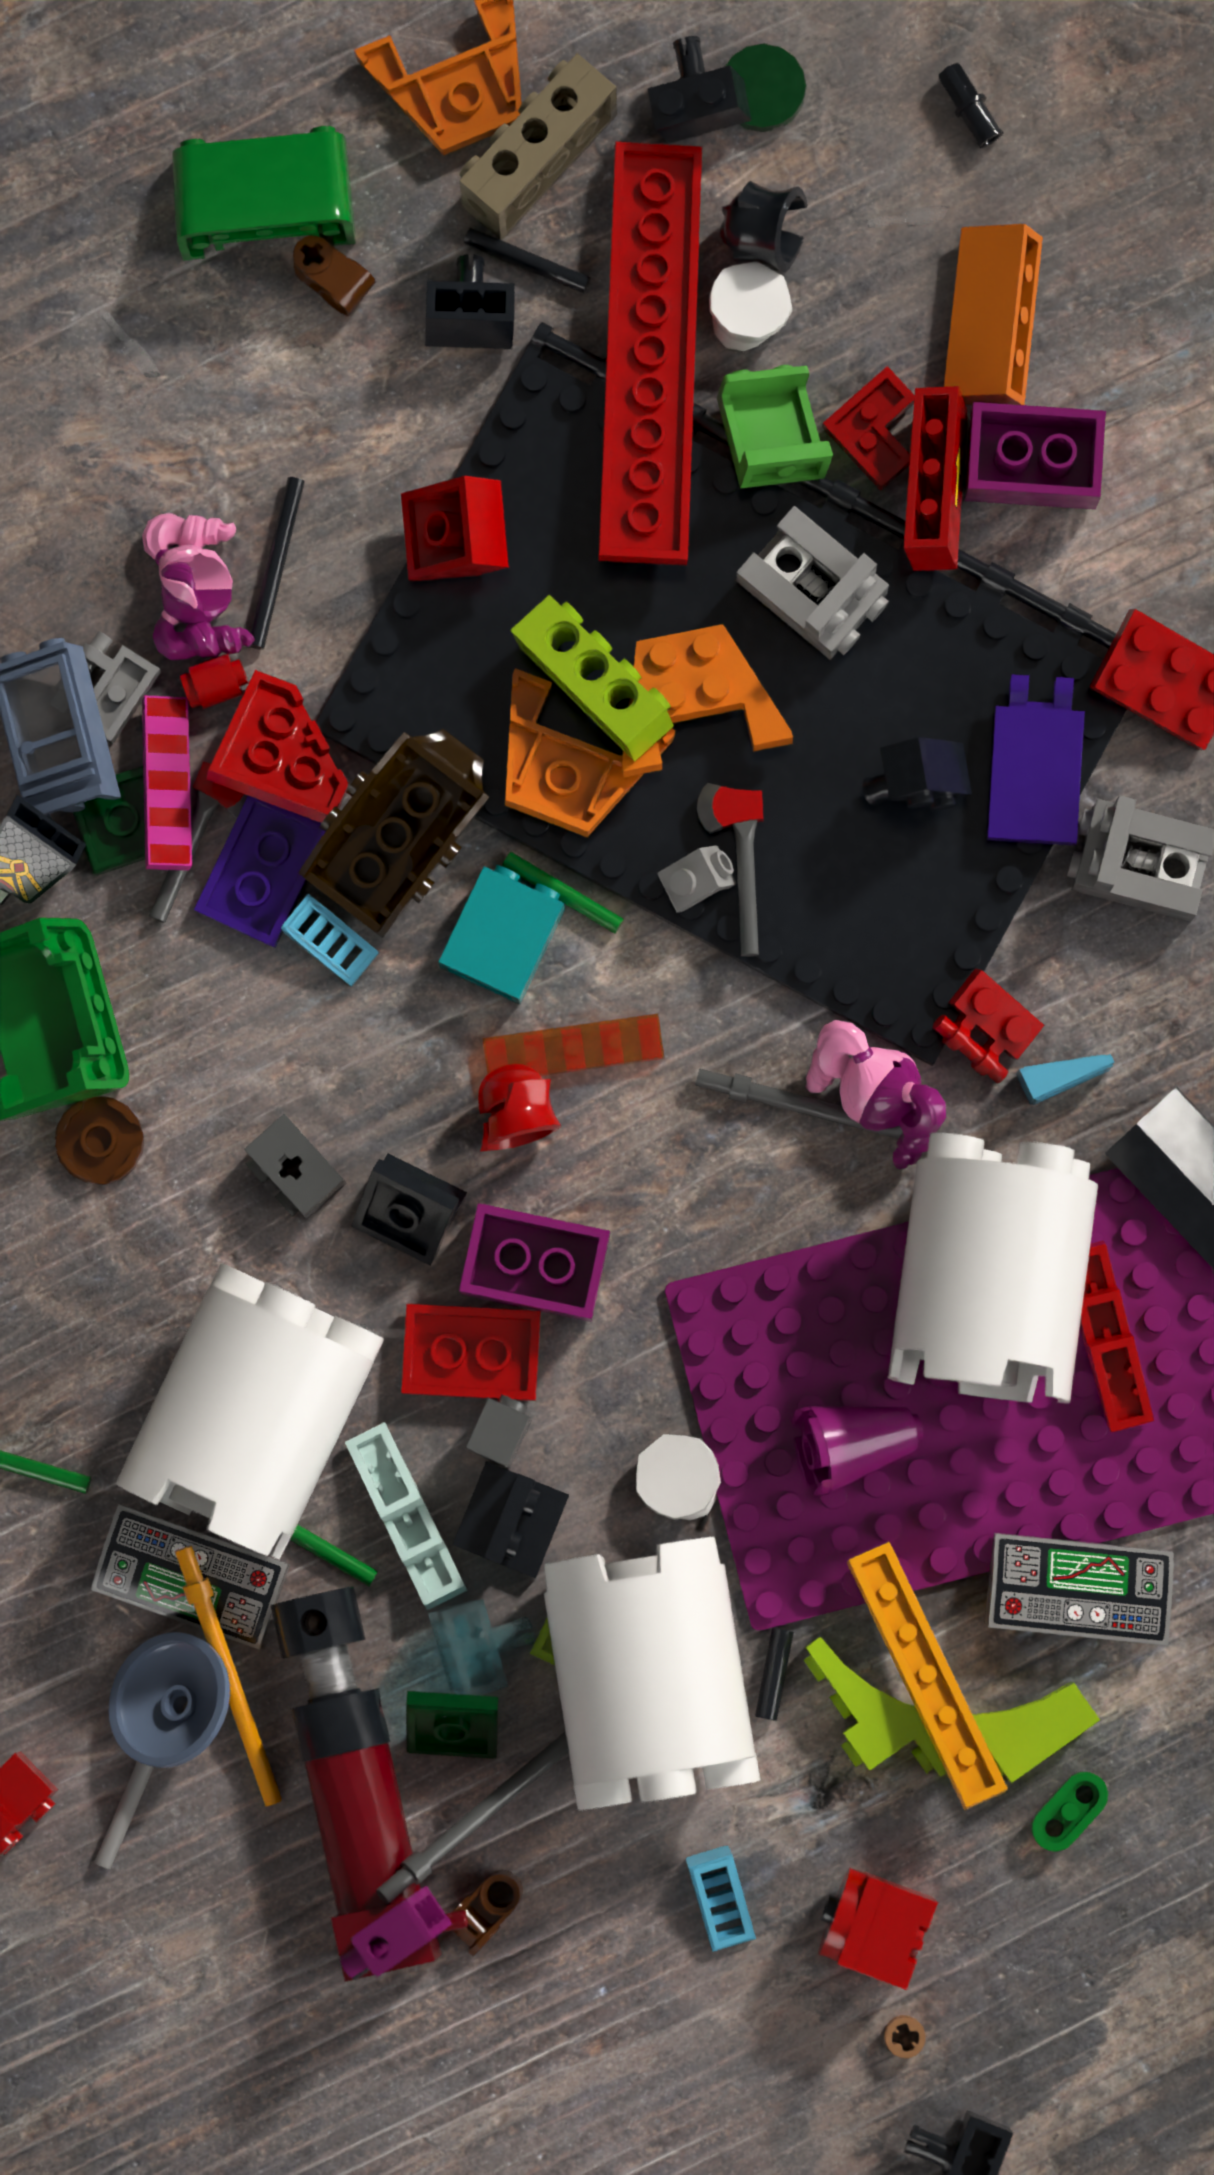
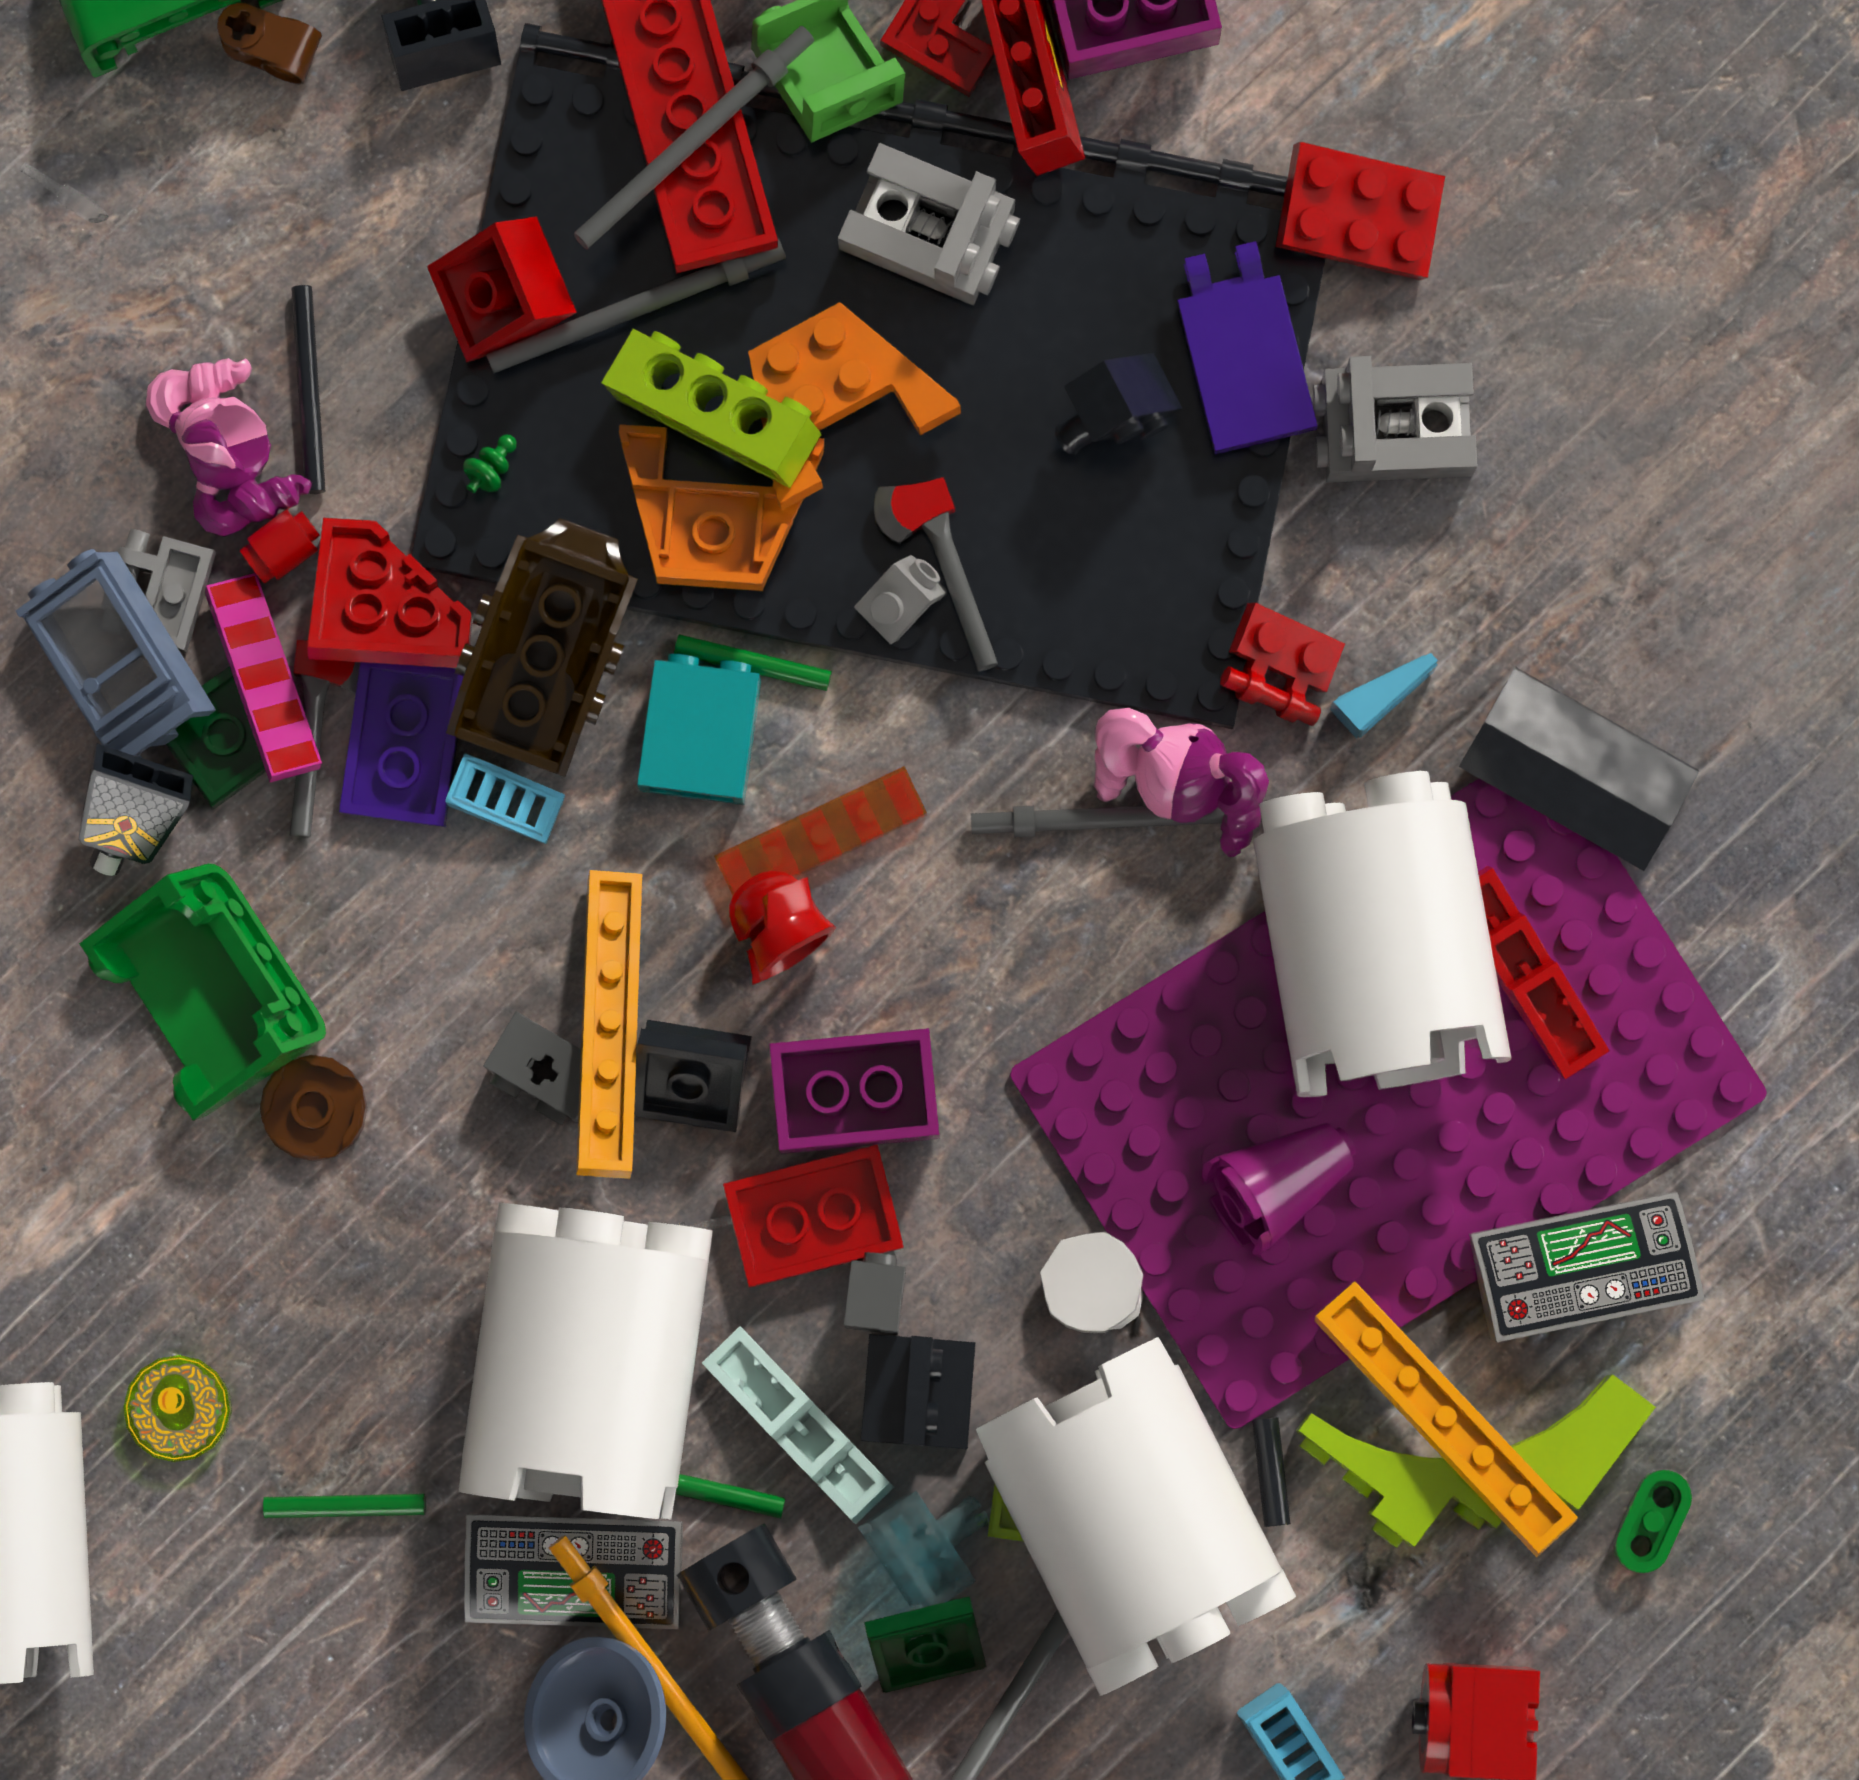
camera: 20 degrees left, 0 degrees up
(355, 1147) = (609, 1025): none -> light orange plate
(404, 666) = (492, 462): none -> green hair
(642, 572) = (729, 271): none -> dark grey bar
(722, 419) = (767, 70): none -> dark grey bar

